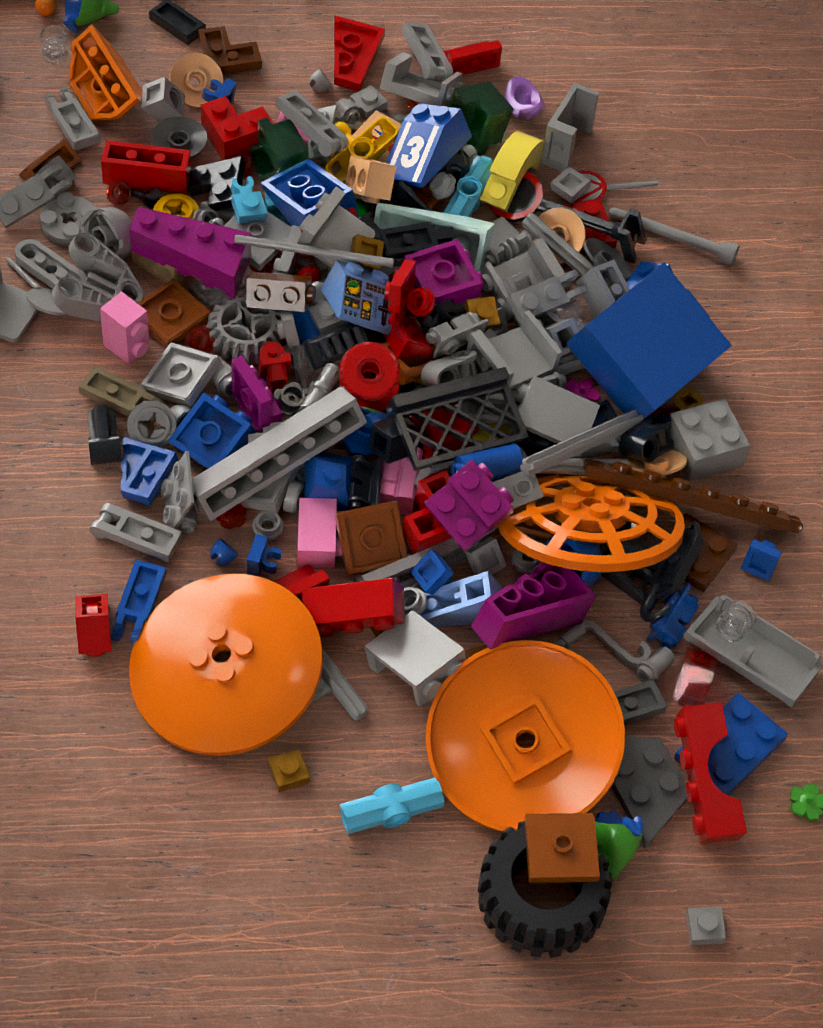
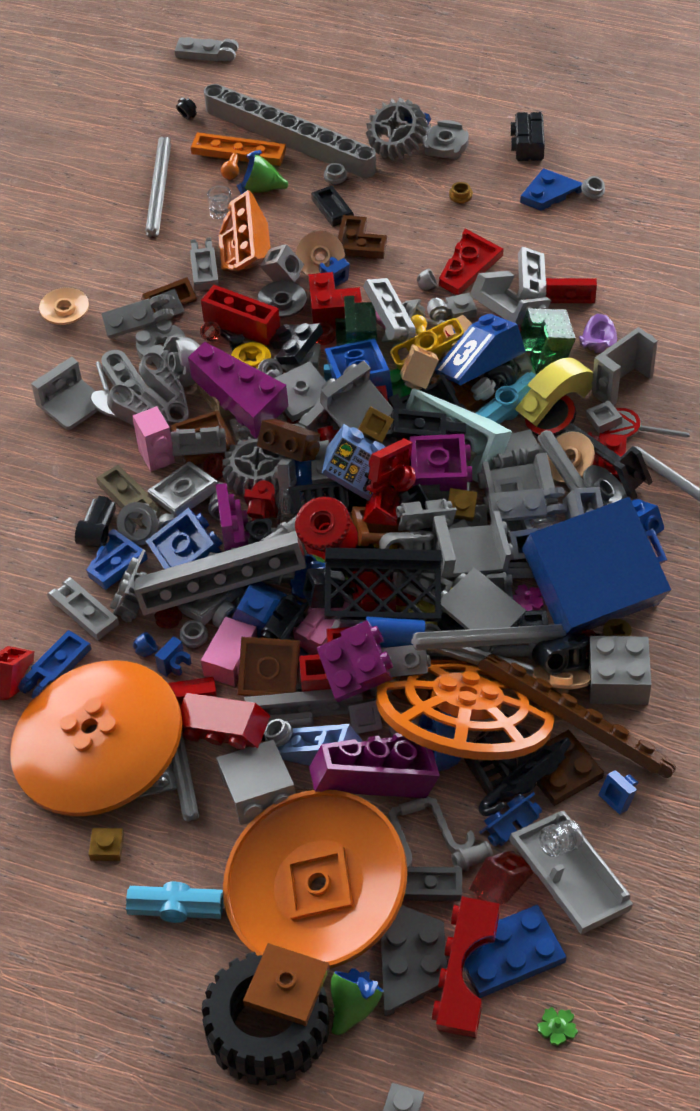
camera: 30 degrees right, 5 degrees down
(177, 318) = (206, 441): none -> light grey hinge
(247, 204) = (304, 362): medium azure plate -> none
(312, 250) = (328, 412): light grey axle -> none
(432, 572) = (306, 712): blue tile -> none

